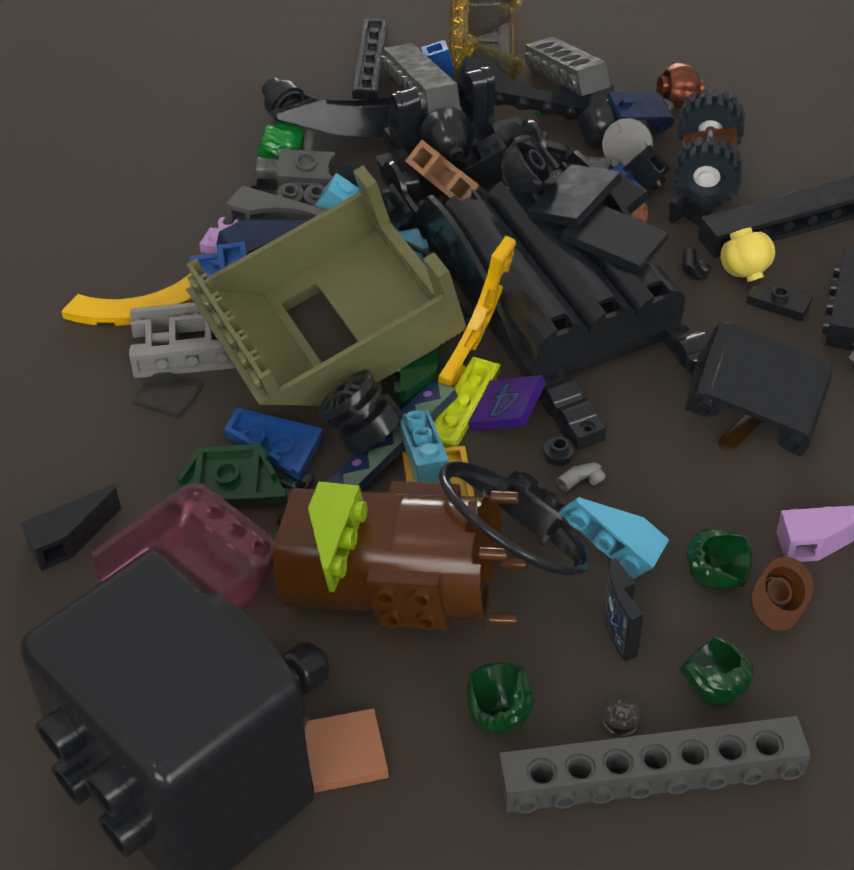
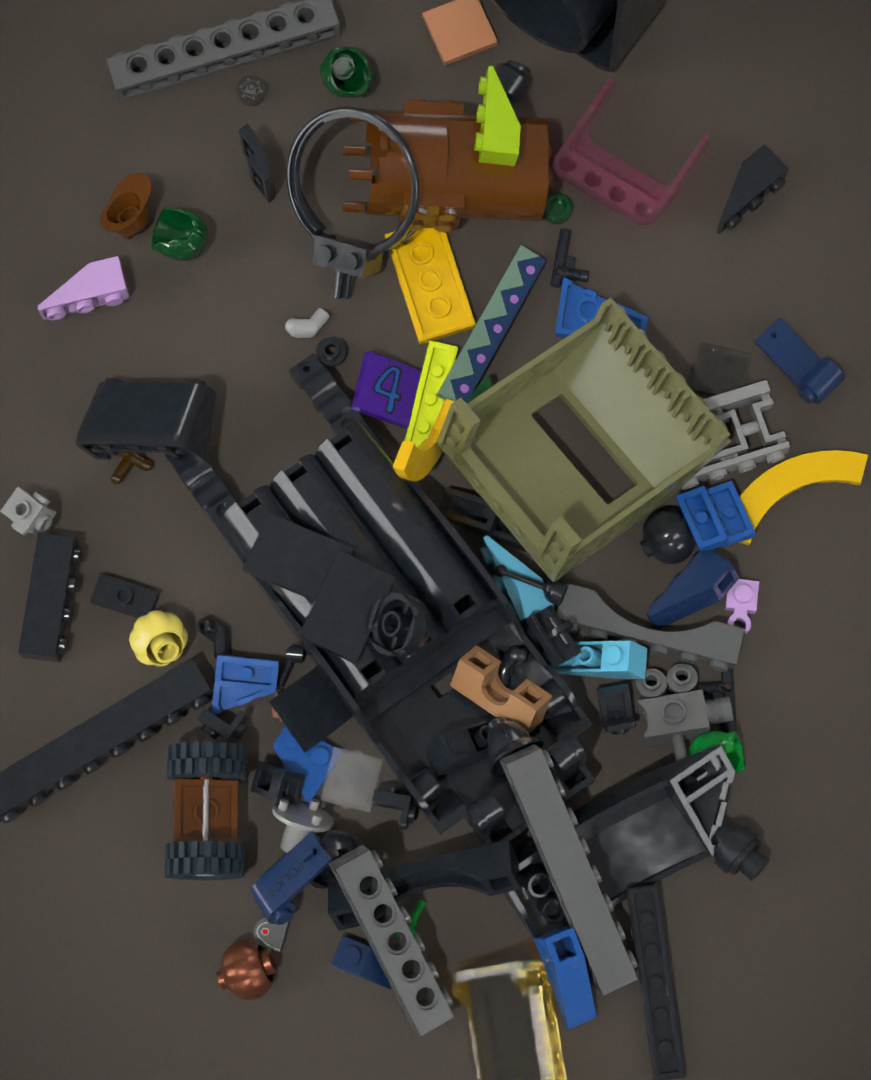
camera: 170 degrees right, 30 degrees up
(84, 378) = (799, 363): none -> dark blue door
(234, 473) = (625, 262): dark green wing -> none
(360, 411) = (518, 331): black wheel -> none
(422, 446) = (452, 306): medium azure slope -> none
(617, 534) = (265, 237): medium azure slope -> none
(679, 236) = (242, 680): none -> blue wing
(718, 672) = (178, 125): dark green hair -> none

